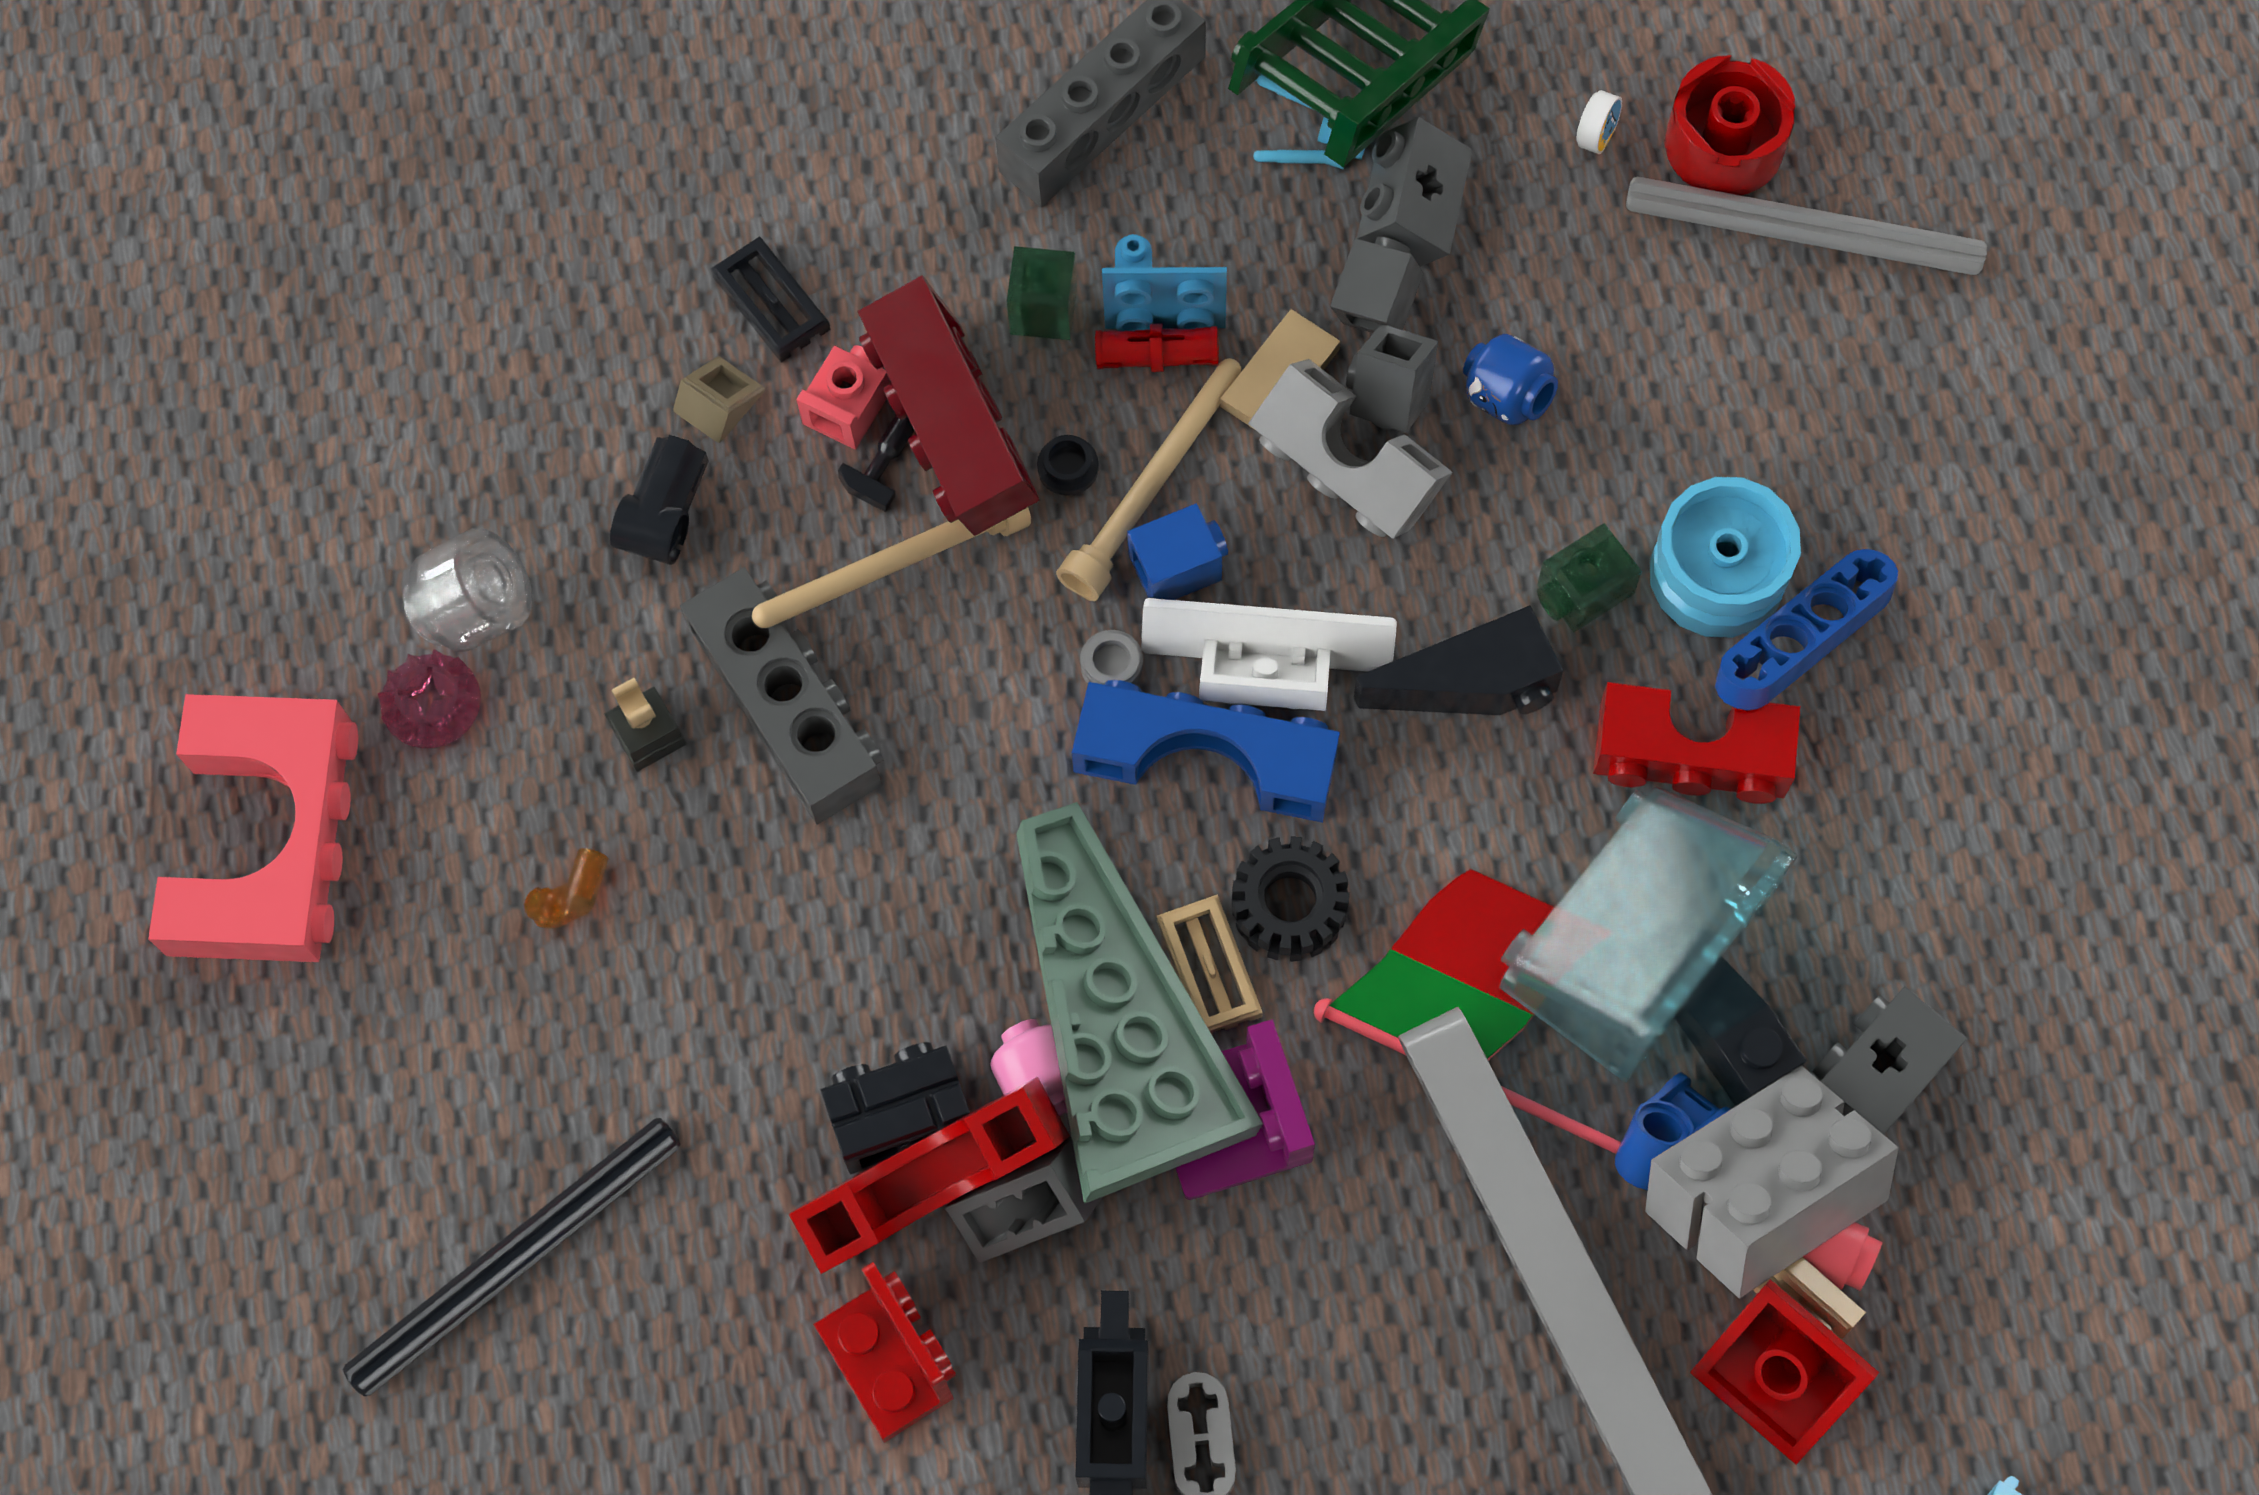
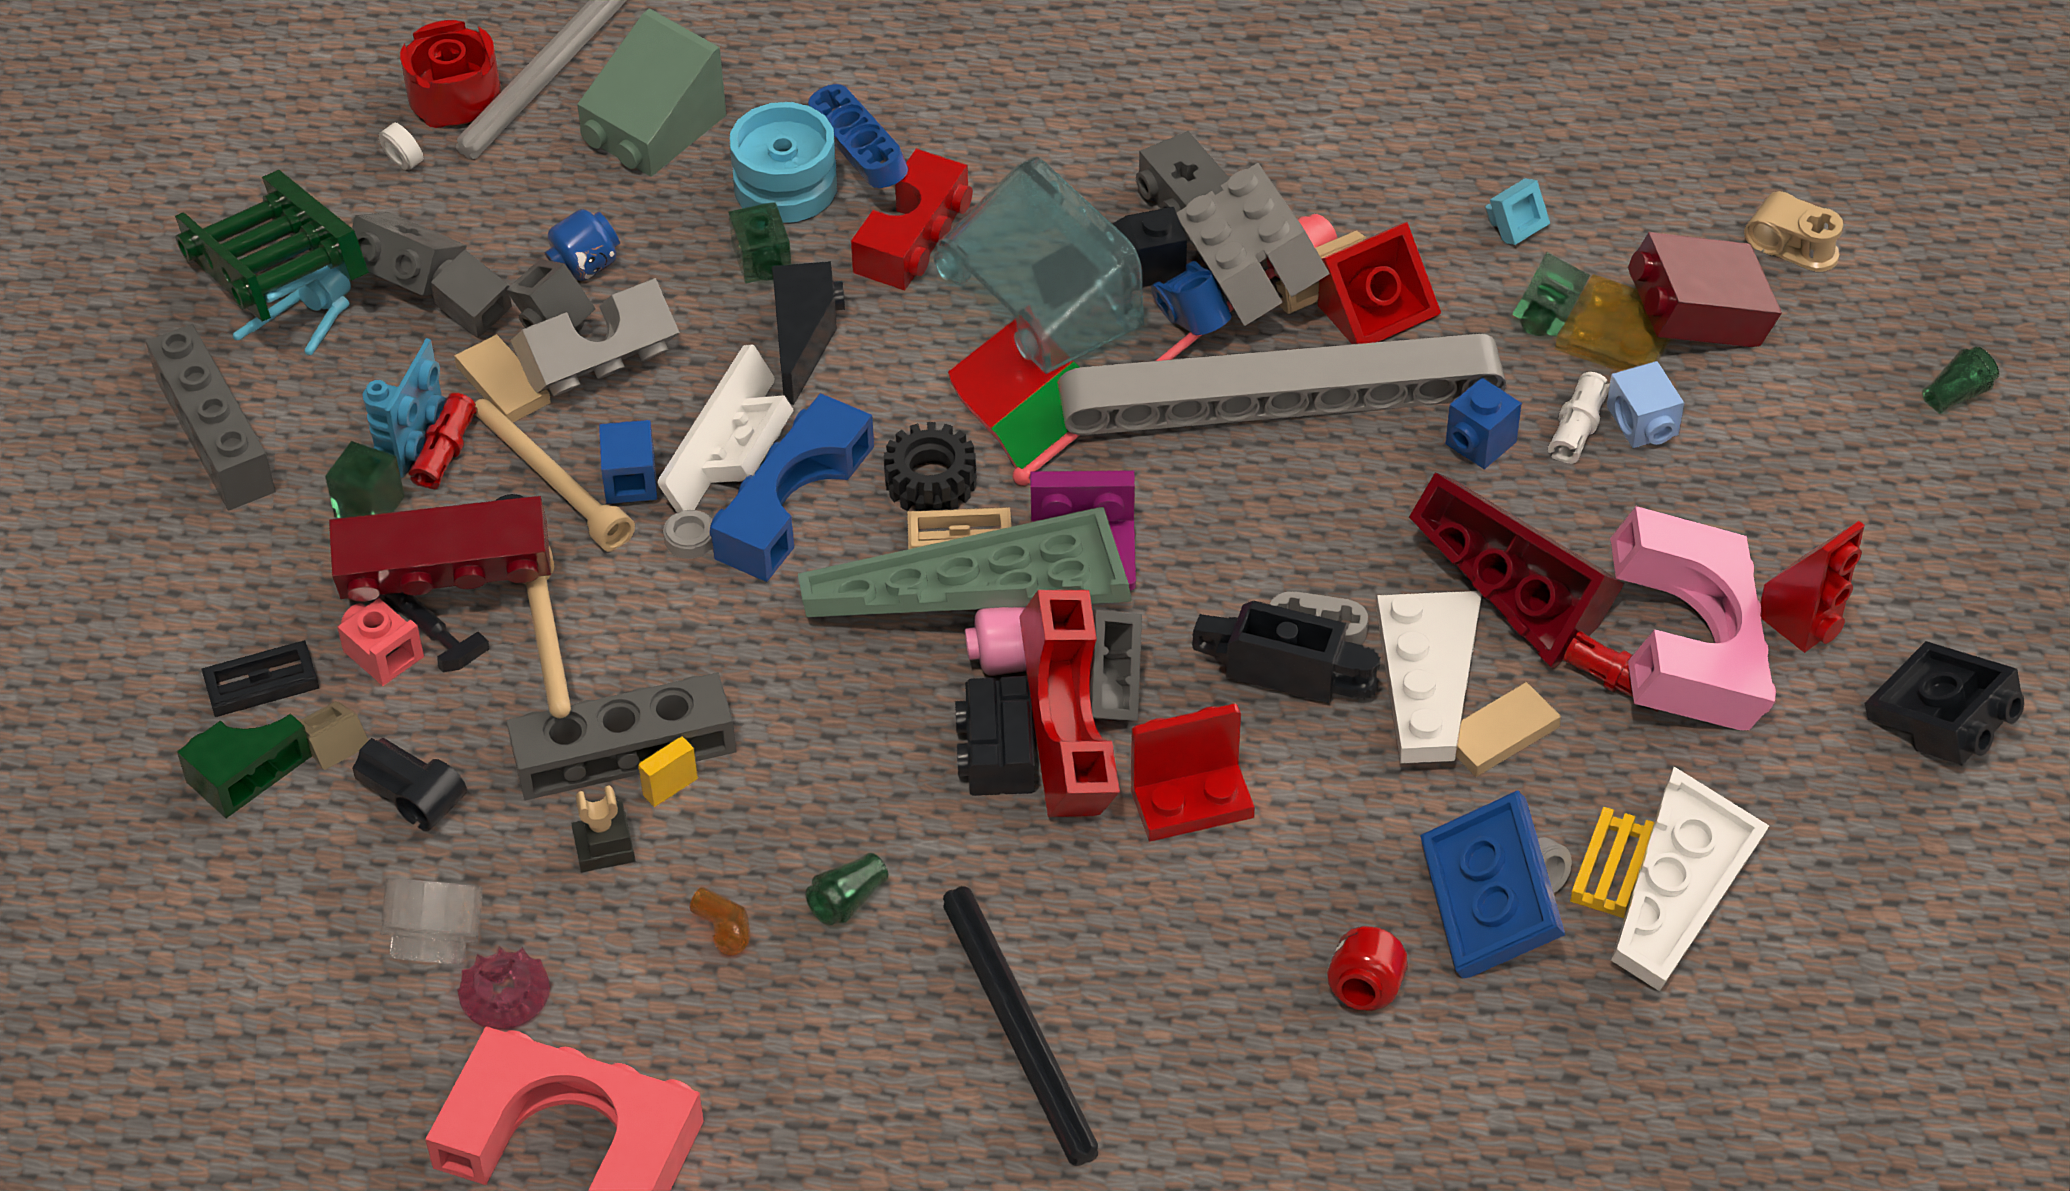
camera: 75 degrees left, 20 degrees down
(628, 321) = (239, 764): none -> dark green arch
(641, 1008) = (843, 890): none -> clear green cone
(744, 760) = (668, 771): none -> yellow tile
(1773, 366) = (654, 95): none -> sand green slope

